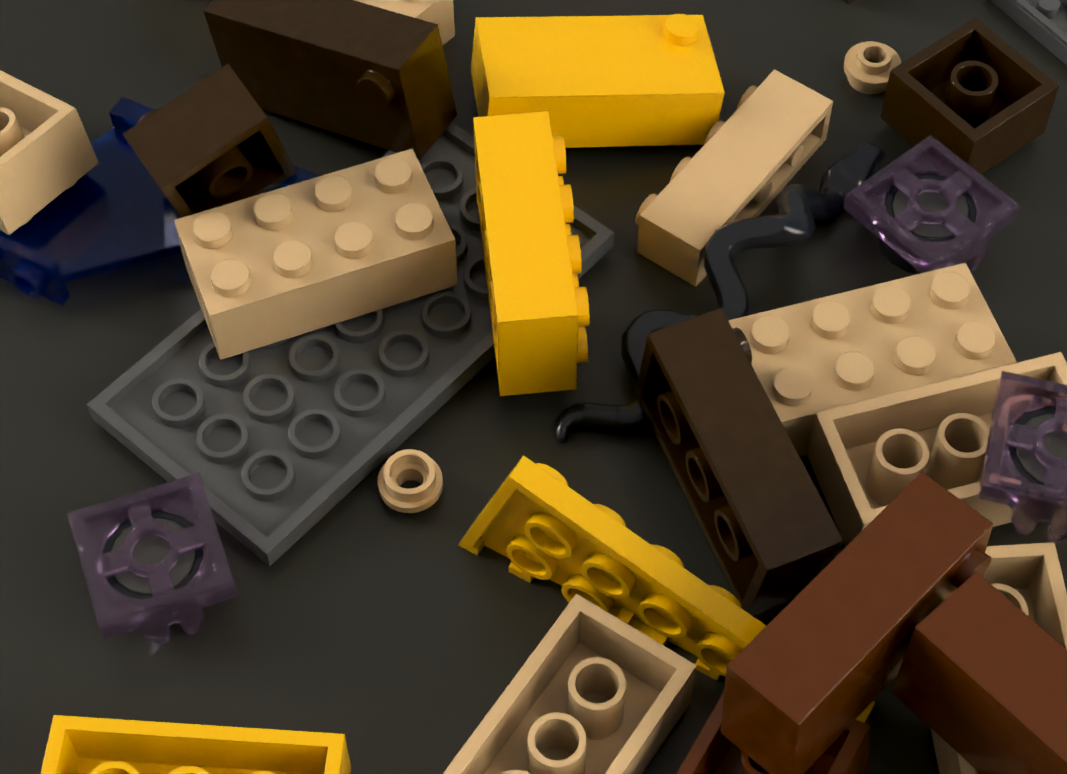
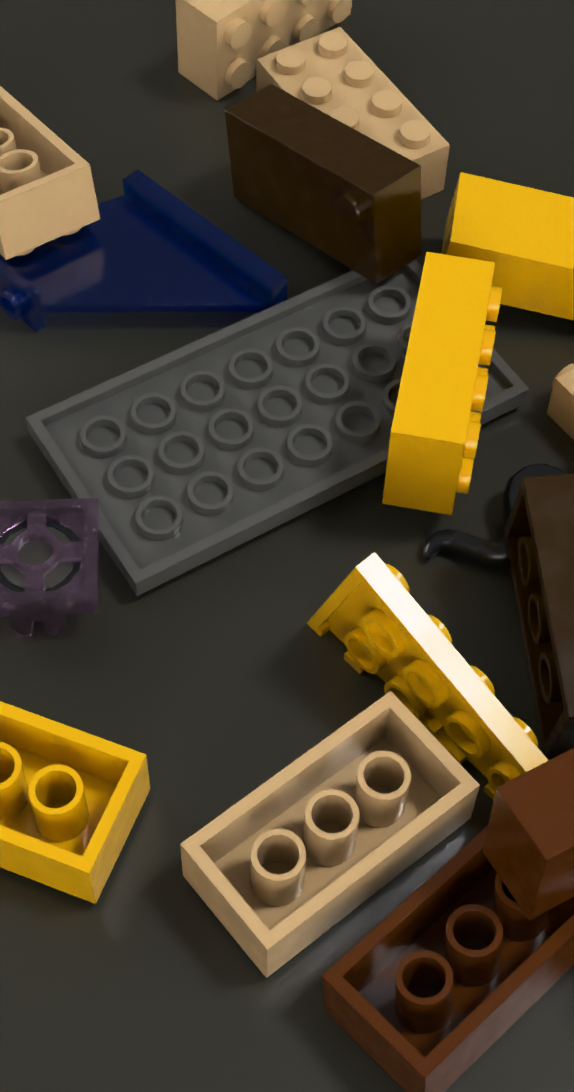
camera: 15 degrees right, 0 degrees up
(210, 145) = (191, 228): dark brown brick -> none
(317, 253) = (260, 338): tan brick -> none
(408, 466) = (281, 543): tan plate -> none

